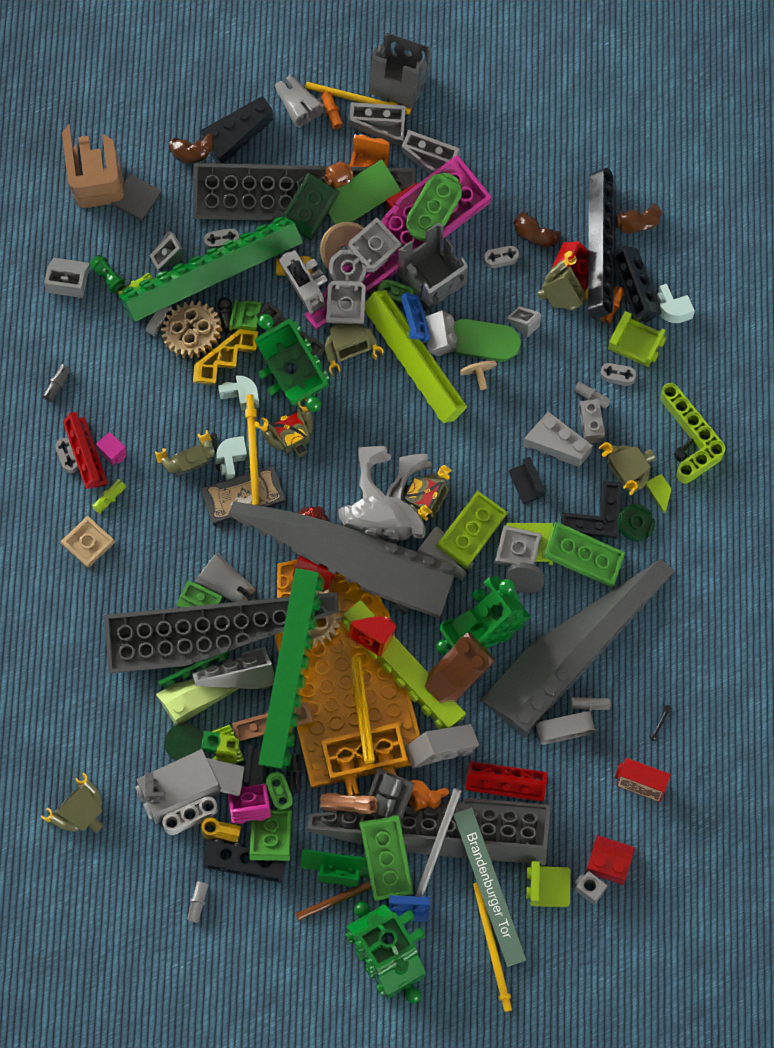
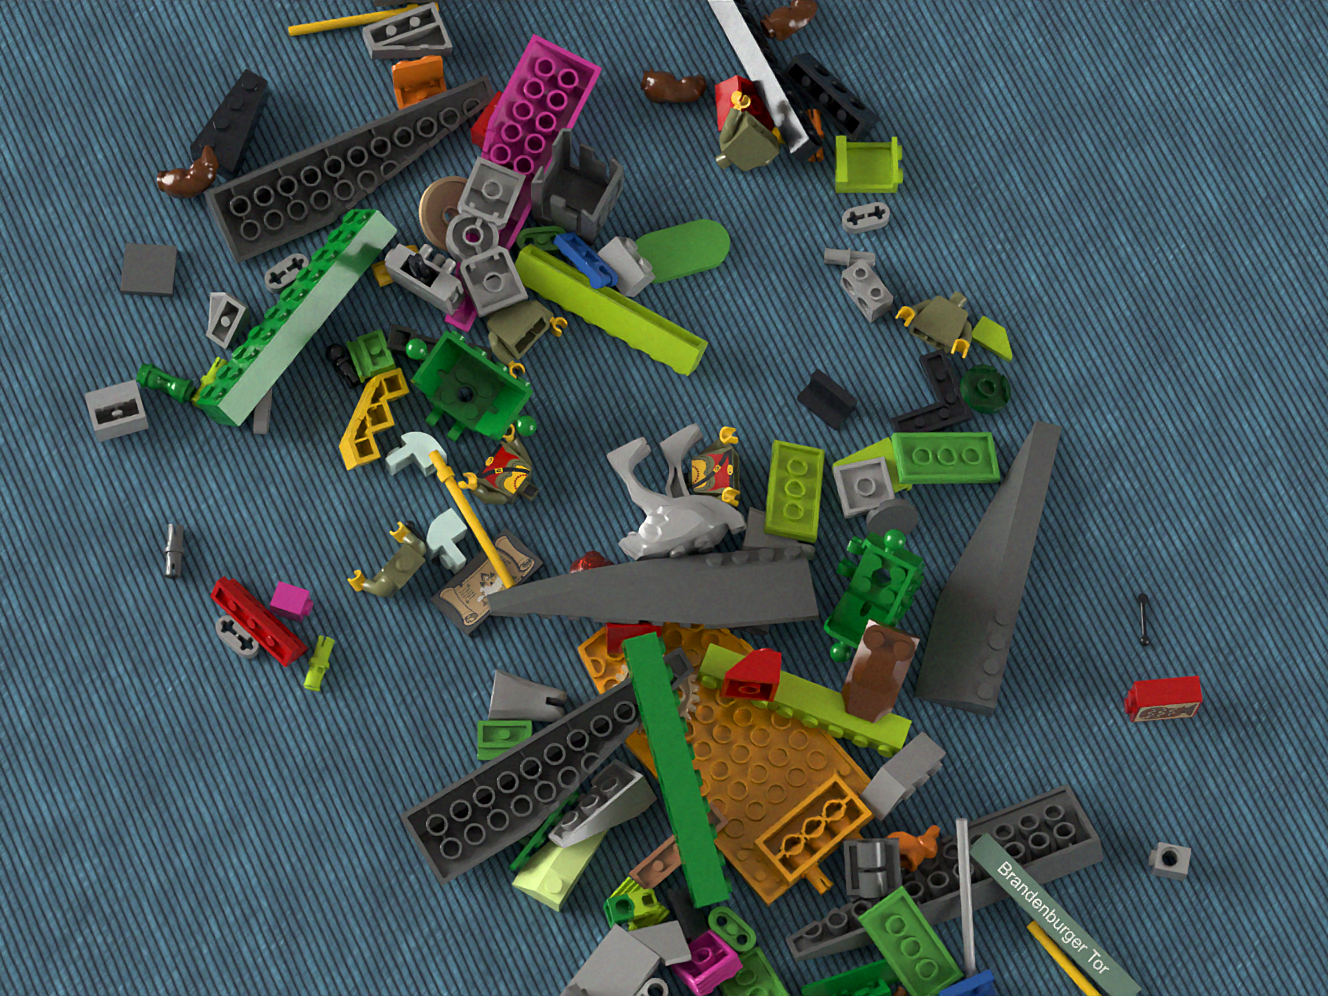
camera: 30 degrees left, 0 degrees up
(87, 542) = (322, 734): tan tile -> none
(96, 185) = (94, 275): medium nougat piece -> none
(182, 741) = (579, 927): dark green tile -> none
(191, 329) = (332, 409): tan gear -> none
(294, 774) = (739, 900): black axle -> none
(299, 102) = (291, 56): light grey piece -> none
(311, 205) = (379, 178): dark green tile -> none
(332, 110) = (339, 49): orange pin -> none
(338, 174) = (398, 125): dark orange head -> none
(338, 802) = (845, 896): nougat axle -> none
(362, 710) = (785, 778): yellow axle -> none
(363, 193) = (434, 137): bright green tile -> none
(428, 152) = (491, 49): light grey wedge -> none
(434, 204) = (537, 110): bright green tile -> none
(478, 369) = (701, 294): tan shield -> none
(501, 257) = (644, 133): light grey beam -> none
(506, 783) = (1001, 783): red fence -> none
(525, 320) = (718, 202): light grey slope -> none
(548, 886) = (1119, 884): lime bracket -> none
(558, 440) = (840, 332): light grey wedge -> none
(565, 728) = (1035, 681): light grey beam -> none
(590, 703) = (1048, 637): light grey axle -> none
(610, 860) = (1175, 816): red slope -> none
(672, 309) = (890, 108): light aqua brick -> none
(680, 453) = (992, 281): black hand -> none
(694, 432) = (995, 247): lime beam -> none

